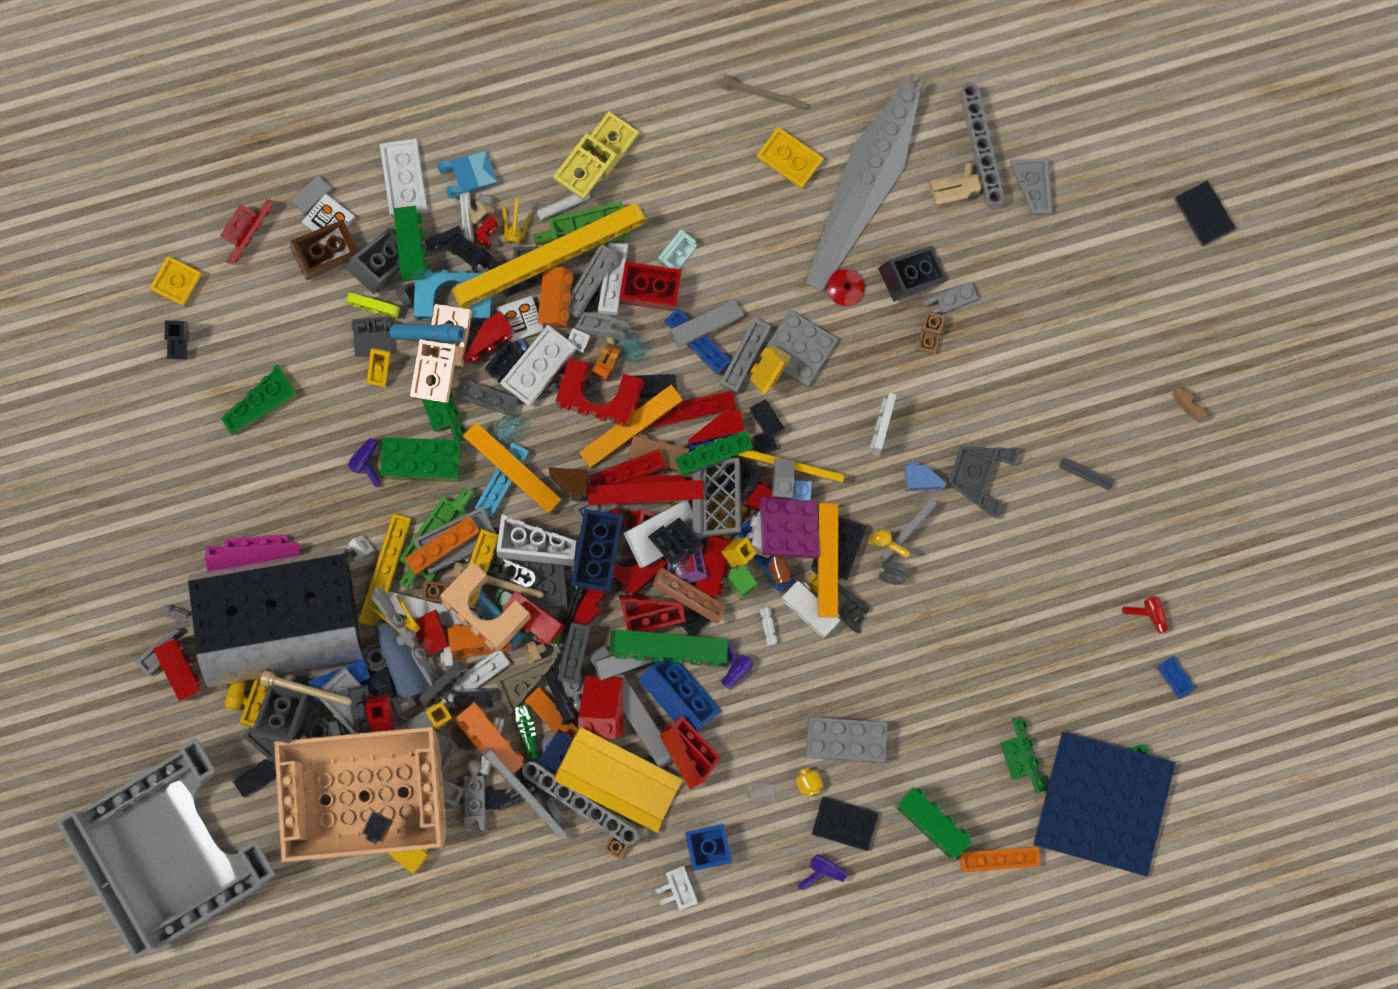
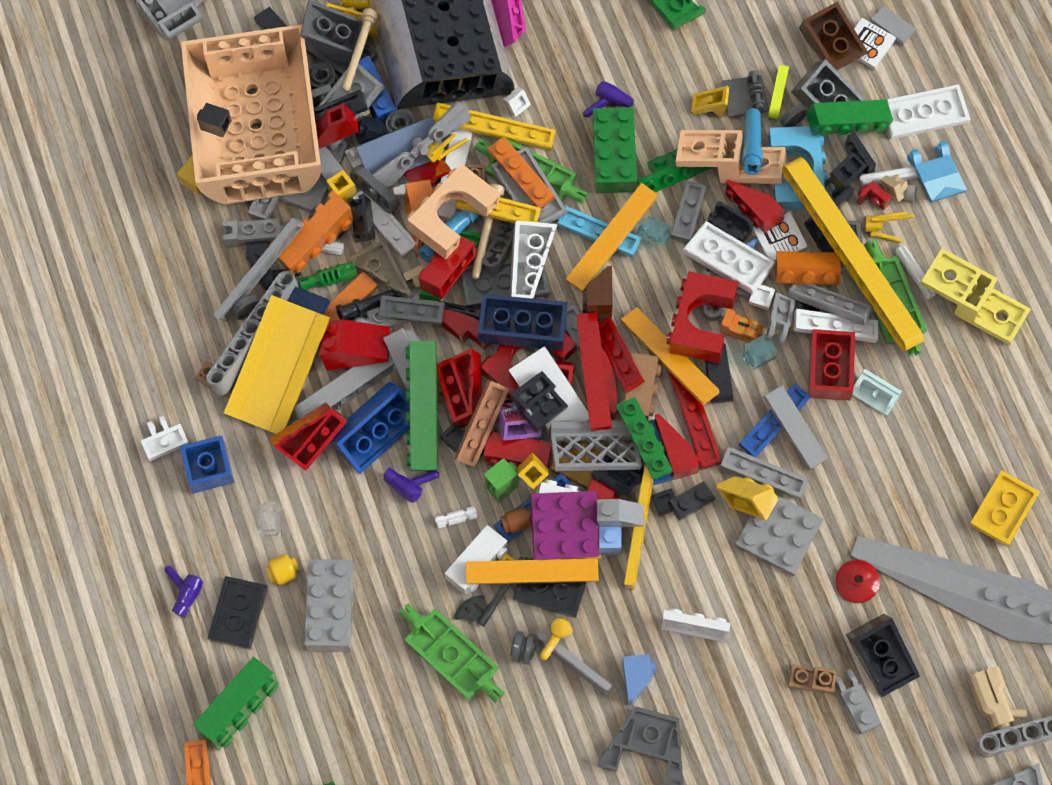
camera: 95 degrees right, 10 degrees down
(894, 635) = (451, 654): none -> bright green plate

